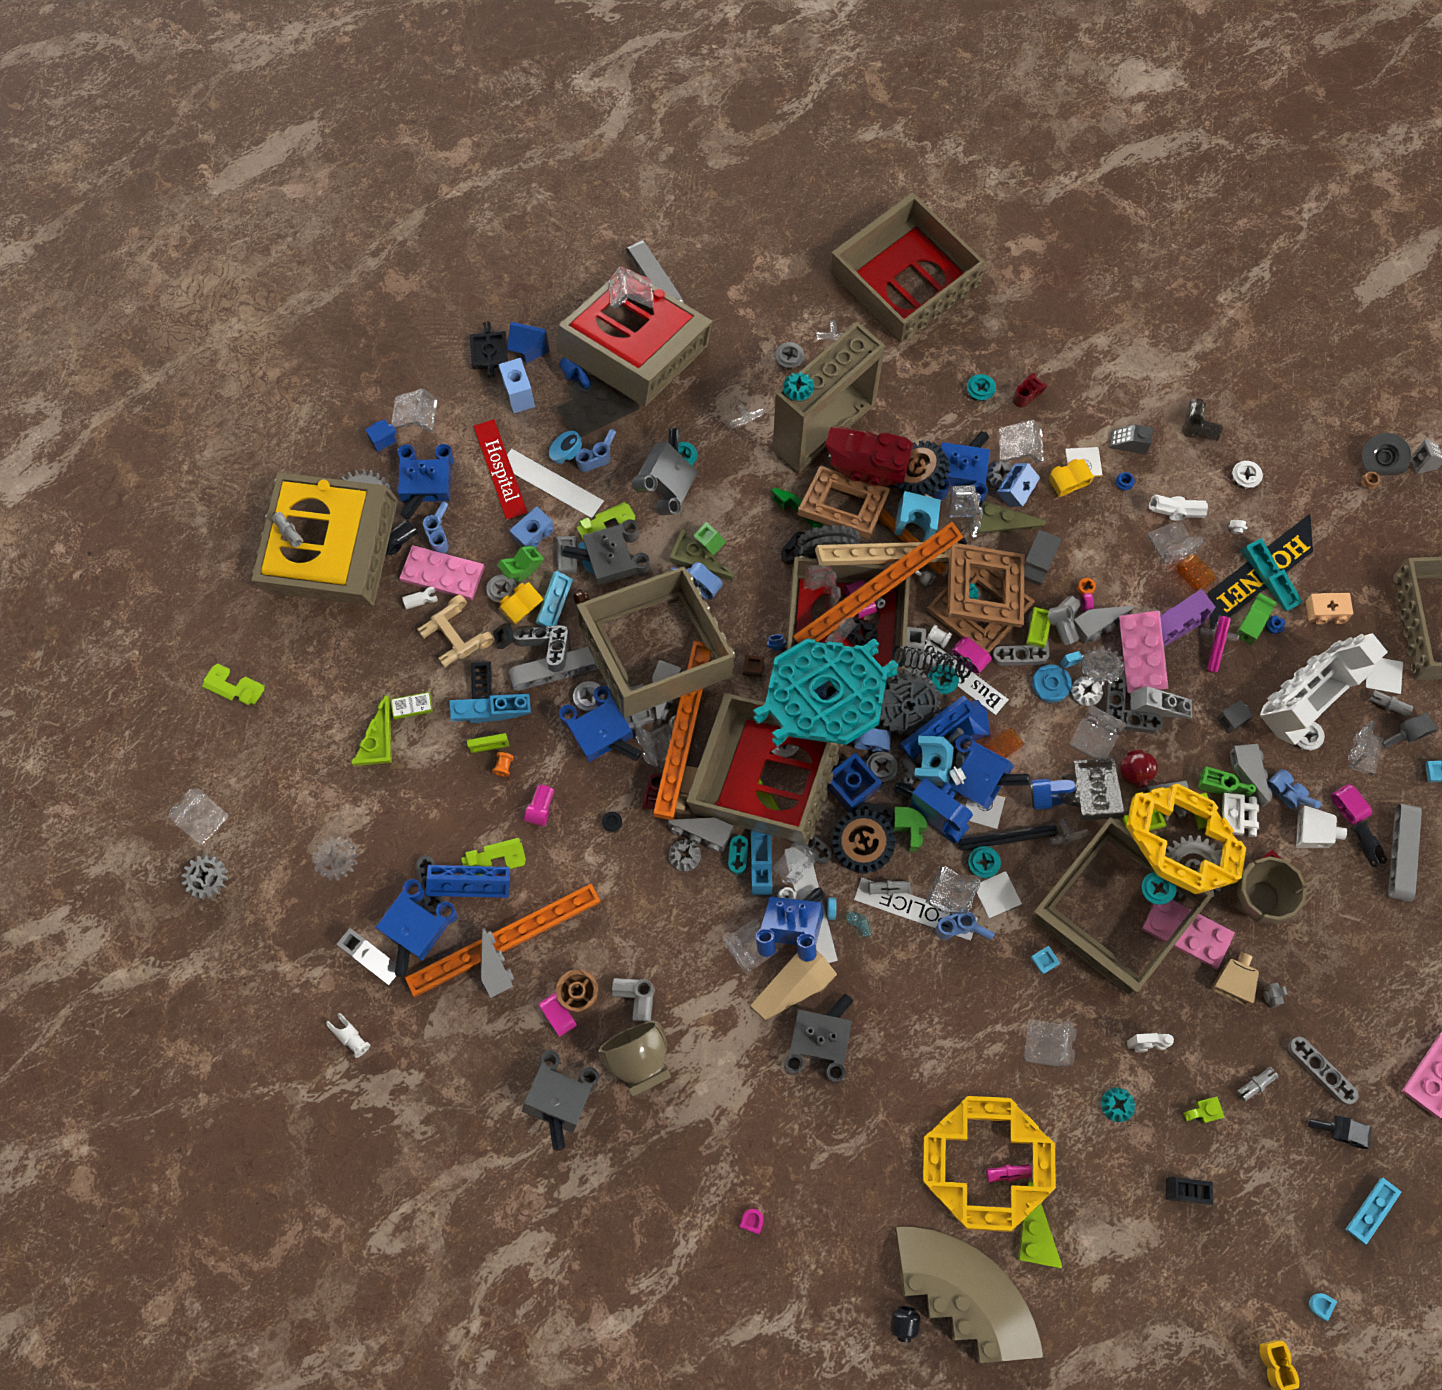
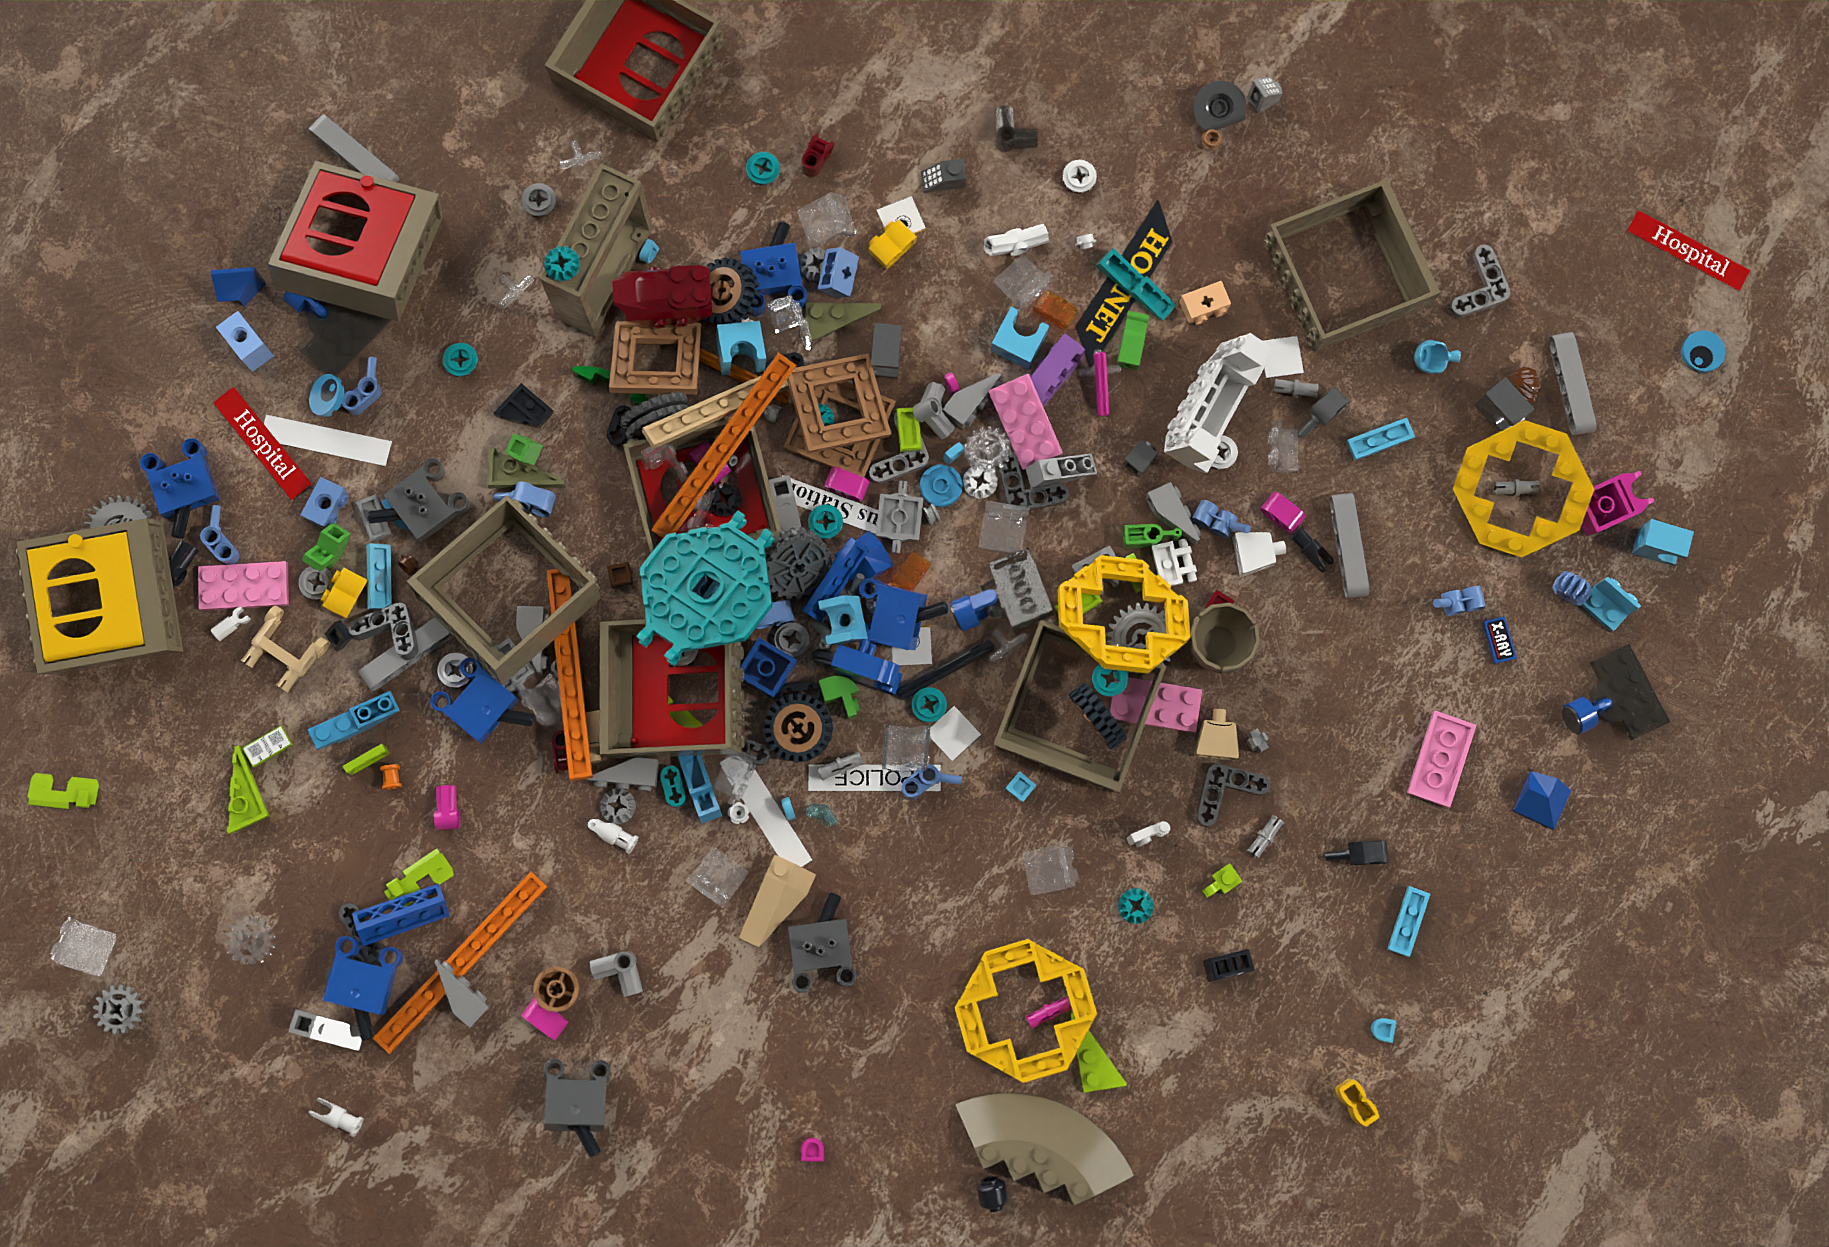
camera: 25 degrees left, 10 degrees up
(287, 529) = (55, 605): light grey pin -> none
(381, 434) = (113, 449): blue brick -> none
(415, 408) = (139, 406): clear bracket -> none
(481, 665) = (322, 688): black slope -> none
(488, 349) = (196, 306): black plate -> none
(598, 523) = (394, 474): lime piece -> none
(612, 822) = (529, 797): black tile -> none
(630, 285) = (332, 187): clear bracket -> none
(639, 1061) = (645, 1040): dark tan plate -> none
(667, 474) = (450, 391): dark grey piece -> none
(672, 876) = (612, 833): none -> white piece
(721, 508) = (524, 408): none -> black wing
(776, 642) = (635, 540): blue plate -> none
(792, 923) = (753, 841): blue piece -> none
(866, 420) = (648, 251): none -> medium azure tile
(939, 636) = (806, 475): white bush -> none
(957, 668) = (775, 517): black piece -> none
(957, 775) = (872, 627): white plate -> none
(1008, 697) = (899, 517): none -> light grey plate
(1036, 703) = (931, 514): none -> light grey bush
(1086, 581) = (941, 359): orange bush -> none
(1125, 476) = (954, 223): blue plate -> none
(1138, 768) = (1056, 550): dark red plant -> none
(1140, 914) = (1097, 715): none -> black wheel
(1153, 591) = (1014, 346): none -> medium azure piece
(1234, 1022) = (1226, 781): none -> dark grey beam
(1272, 628) = (1155, 345): blue plate -> none
(1324, 1068) = (1323, 803): light grey beam -> none

